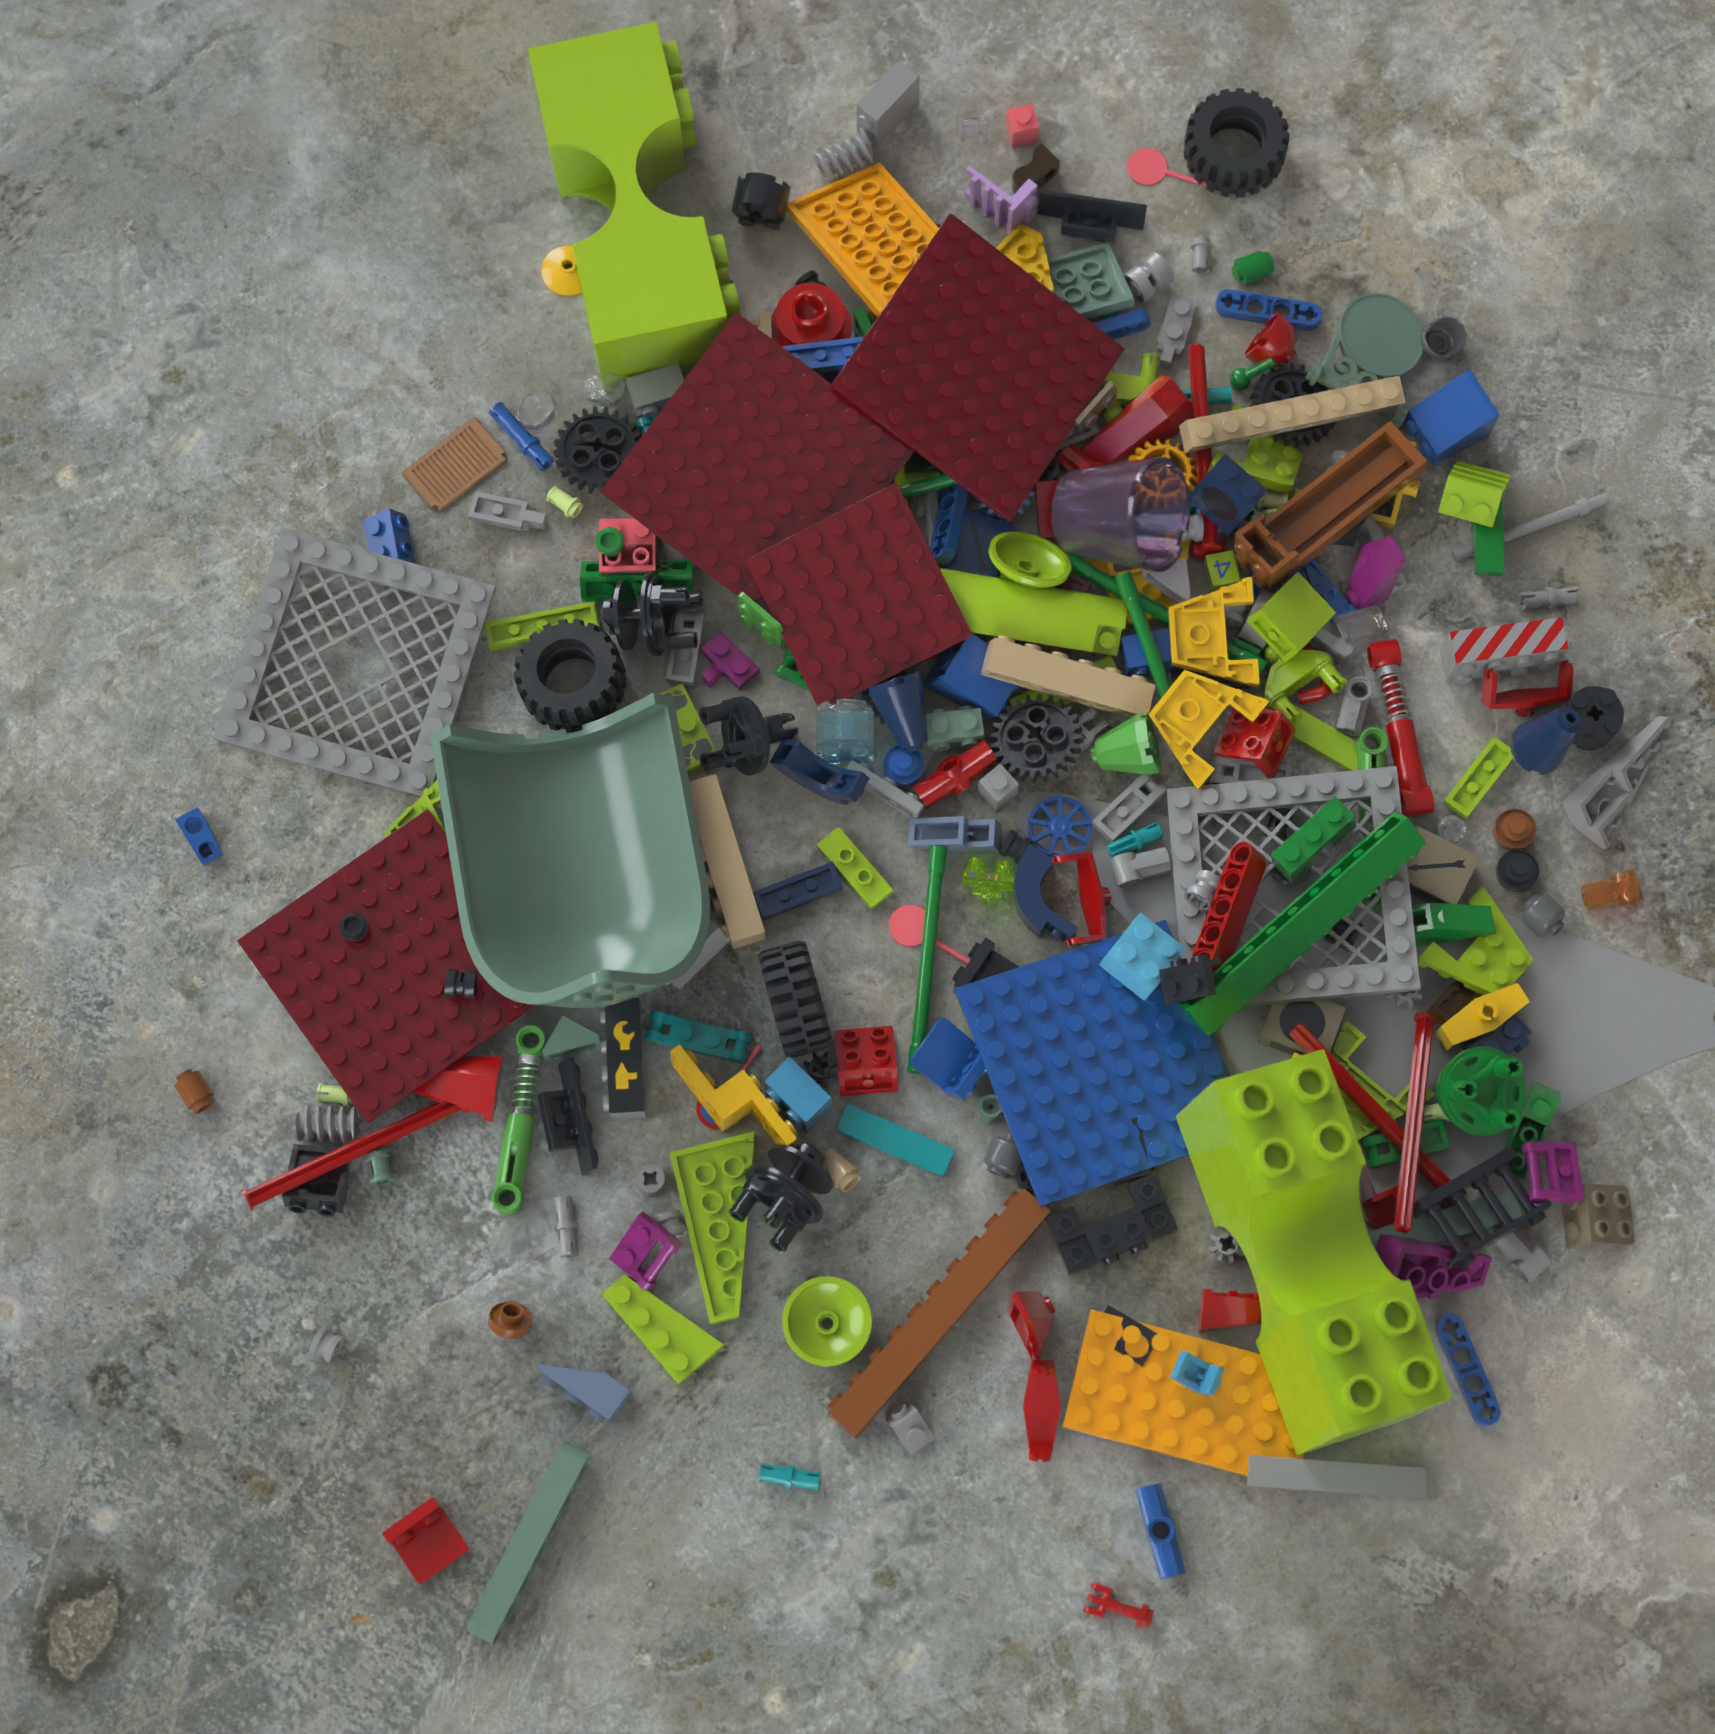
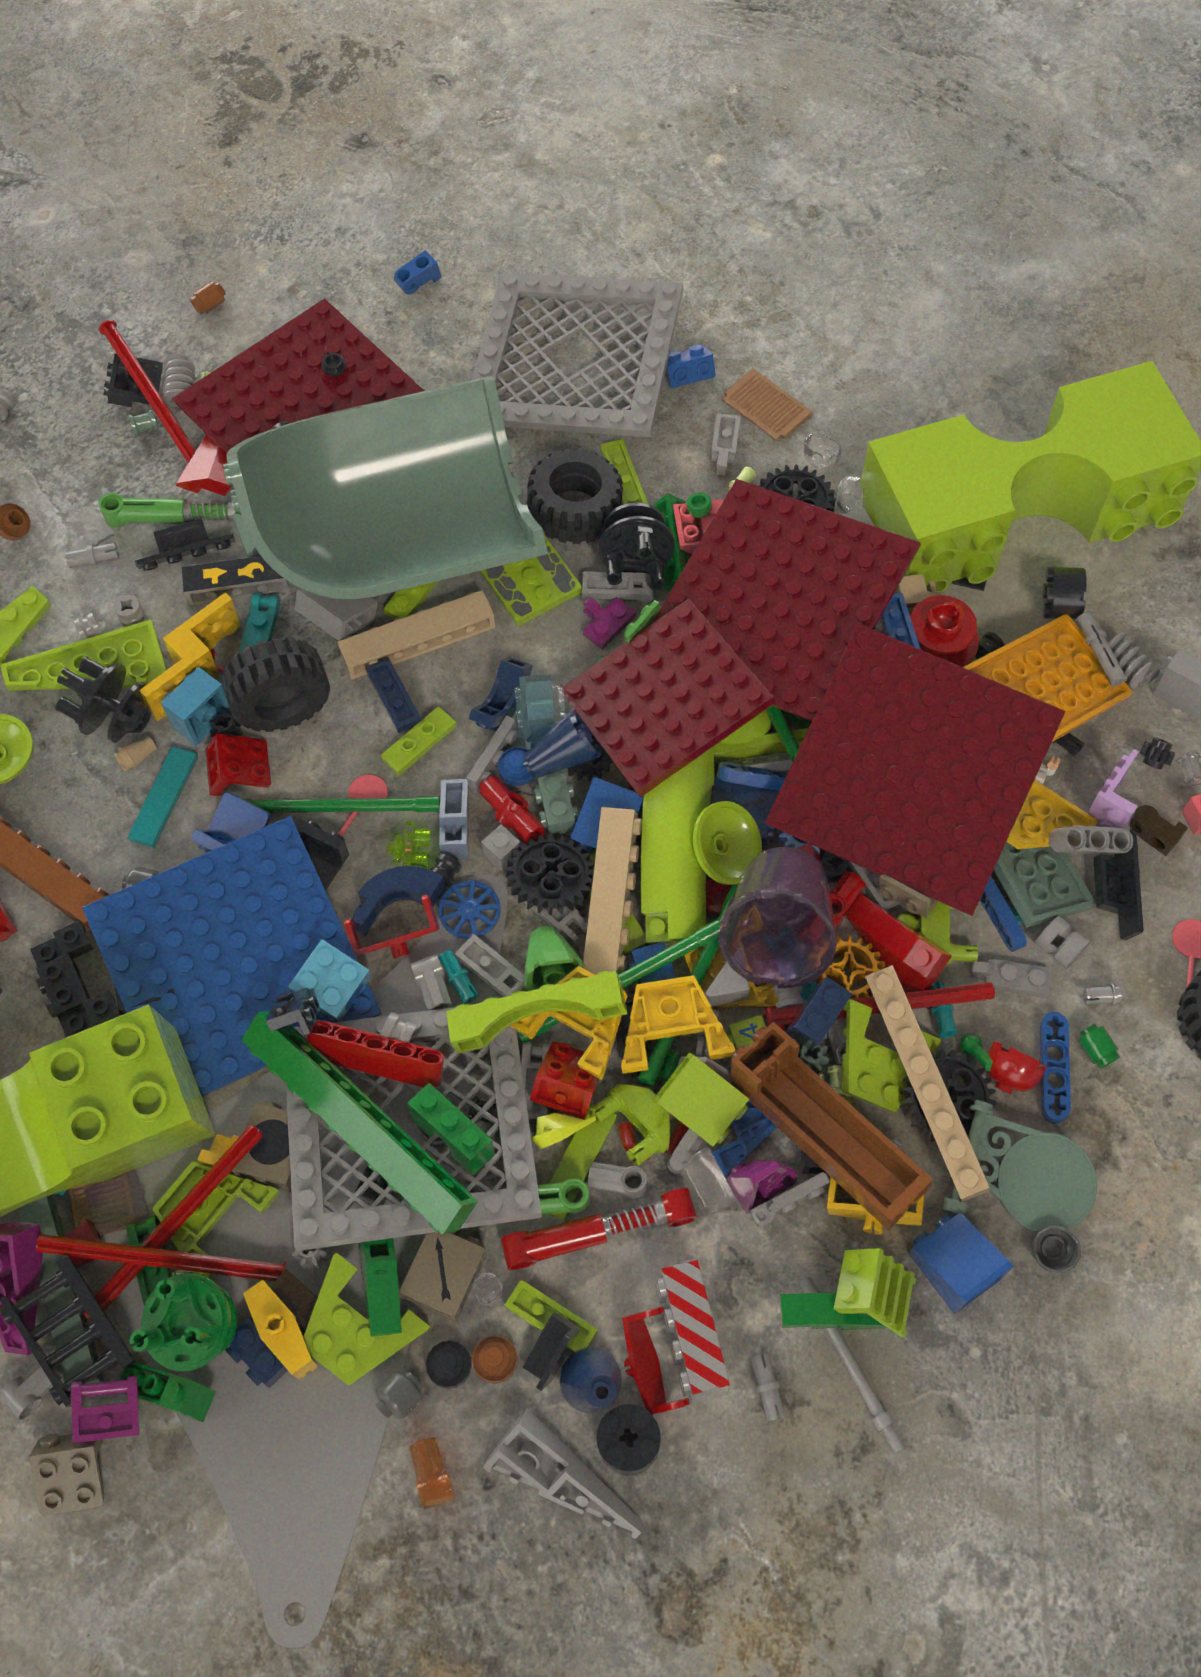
camera: 85 degrees right, 10 degrees down
(528, 444) = (792, 450): blue pin -> none
(638, 1244) = (69, 606): magenta plate -> none
(744, 735) = (531, 634): black piece -> none
(836, 178) = (1096, 639): none -> light grey pin
(953, 154) = (1157, 753): none -> black gear
(1051, 230) = (1091, 840): none -> light grey beam
(1205, 813) = (478, 1024): none -> lime arch
(1309, 752) = (556, 1127): none -> neon yellow piece
(1513, 775) = (551, 1349): none -> black panel

